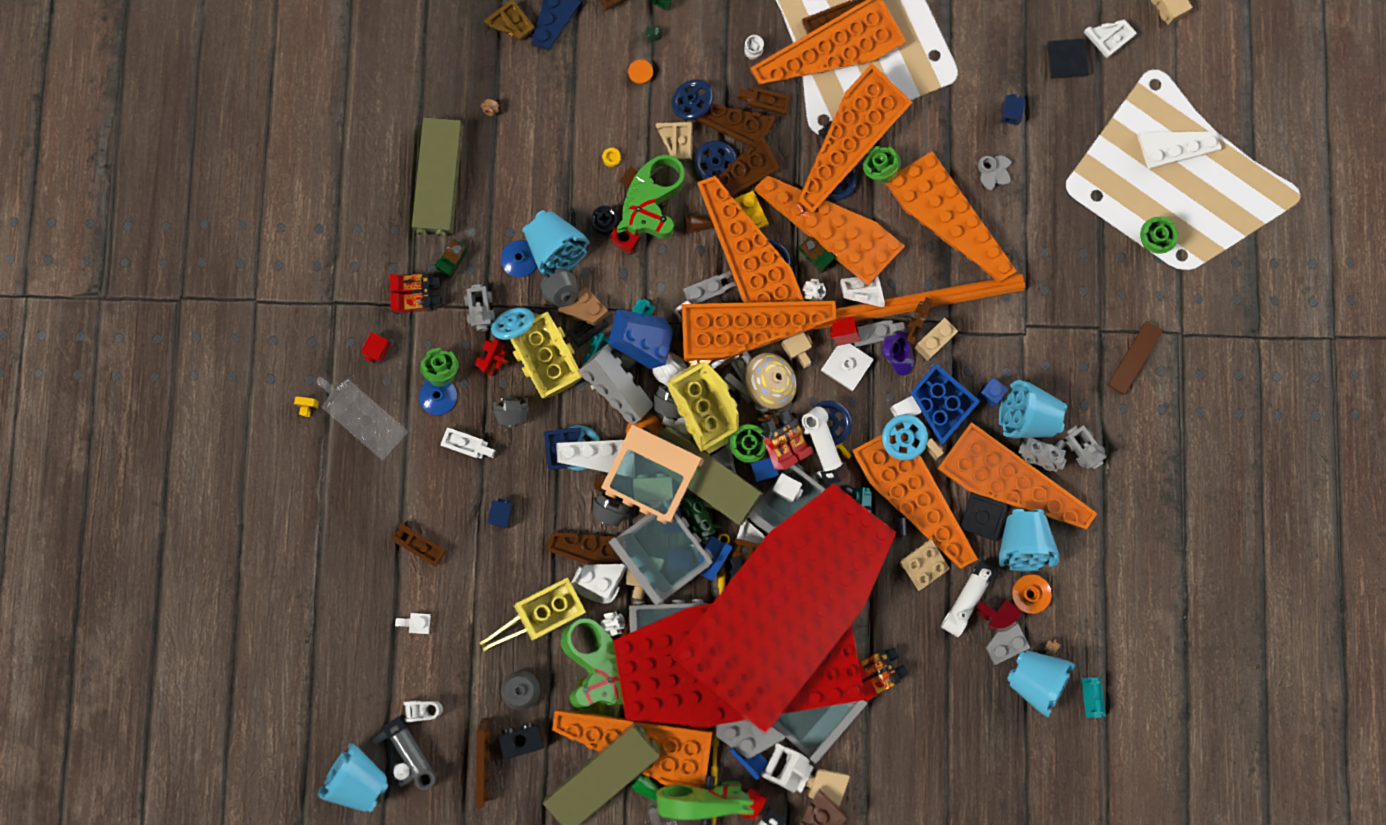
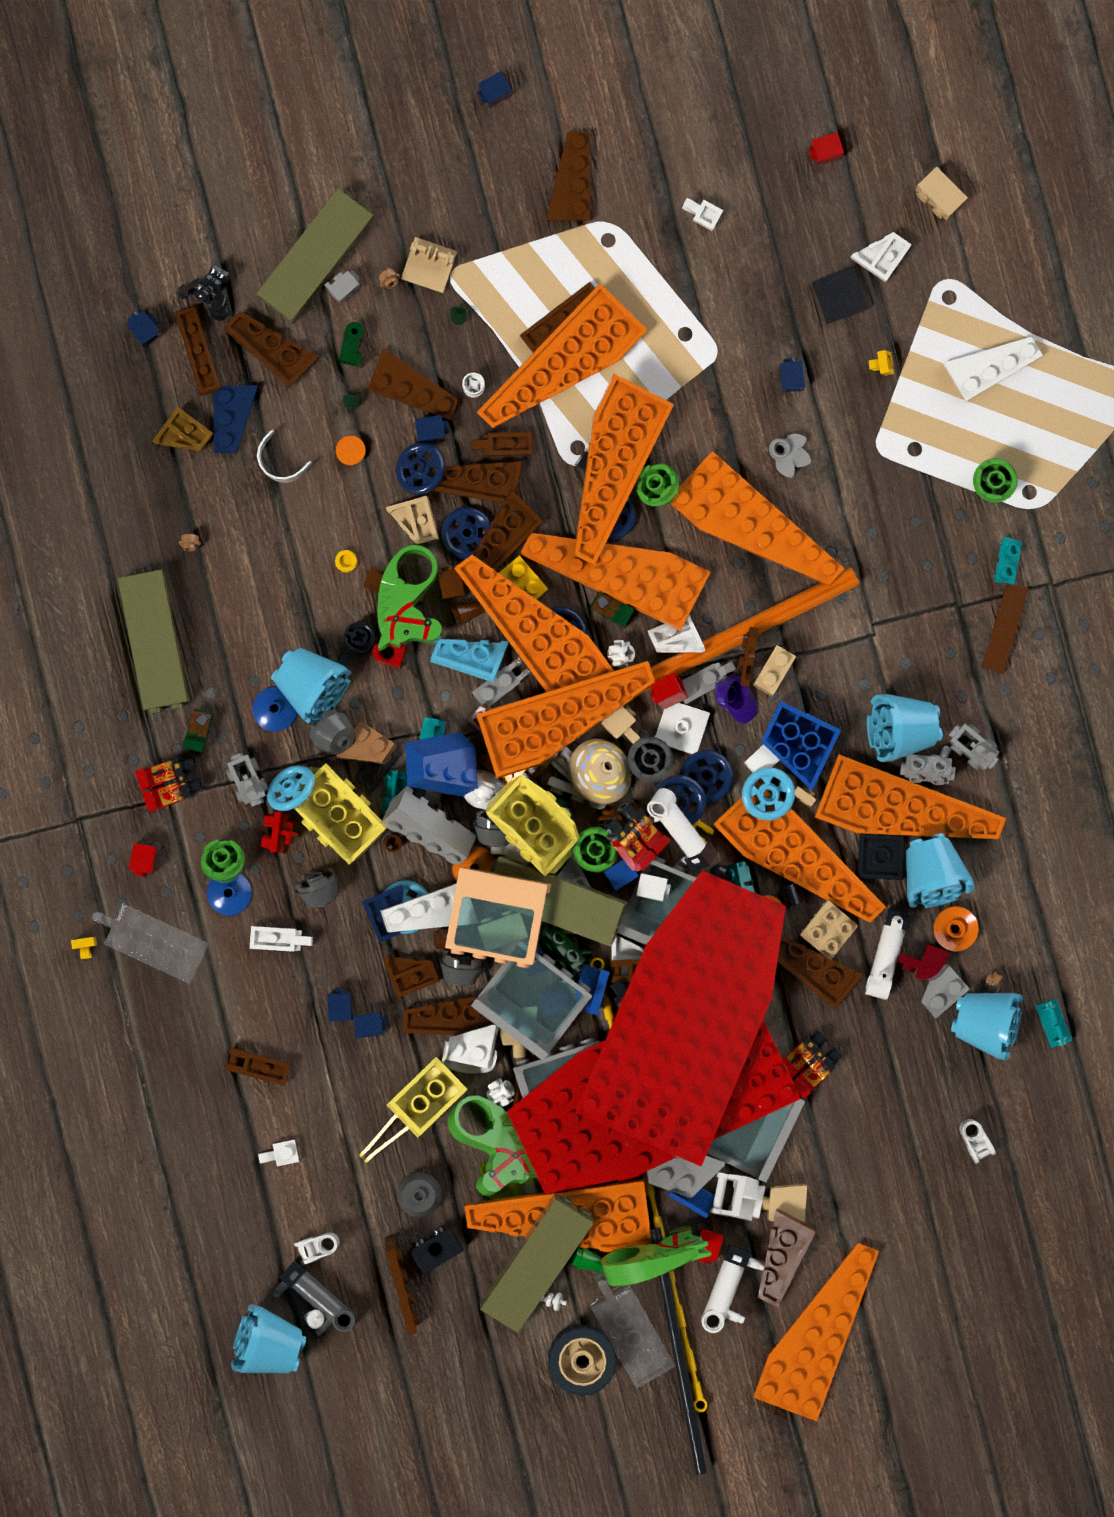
camera: 15 degrees left, 5 degrees up
(520, 536) = (369, 1025): none -> dark blue brick
(566, 504) = (410, 974): none -> reddish brown wing
(583, 79) = (279, 479): none -> white piece
(586, 394) = (396, 845): none -> reddish brown hinge
(610, 815) = (557, 1301): none -> white hair
(690, 197) = (450, 583): none -> reddish brown brick
(694, 263) = (473, 658): none -> medium azure wing
(700, 34) = (406, 385): none -> reddish brown wing
(710, 71) = (431, 429): none -> dark blue brick
(814, 381) = (650, 758): none -> dark grey cone
(865, 396) = (725, 775): none -> dark blue plate
(908, 601) = (820, 974): none -> reddish brown wing
(992, 392) = (853, 713): blue brick -> none
(1003, 782) = (977, 1144): none -> white piece
(1089, 119) = (883, 363): none -> yellow tile
(1152, 303) = (1008, 561): none -> teal hinge

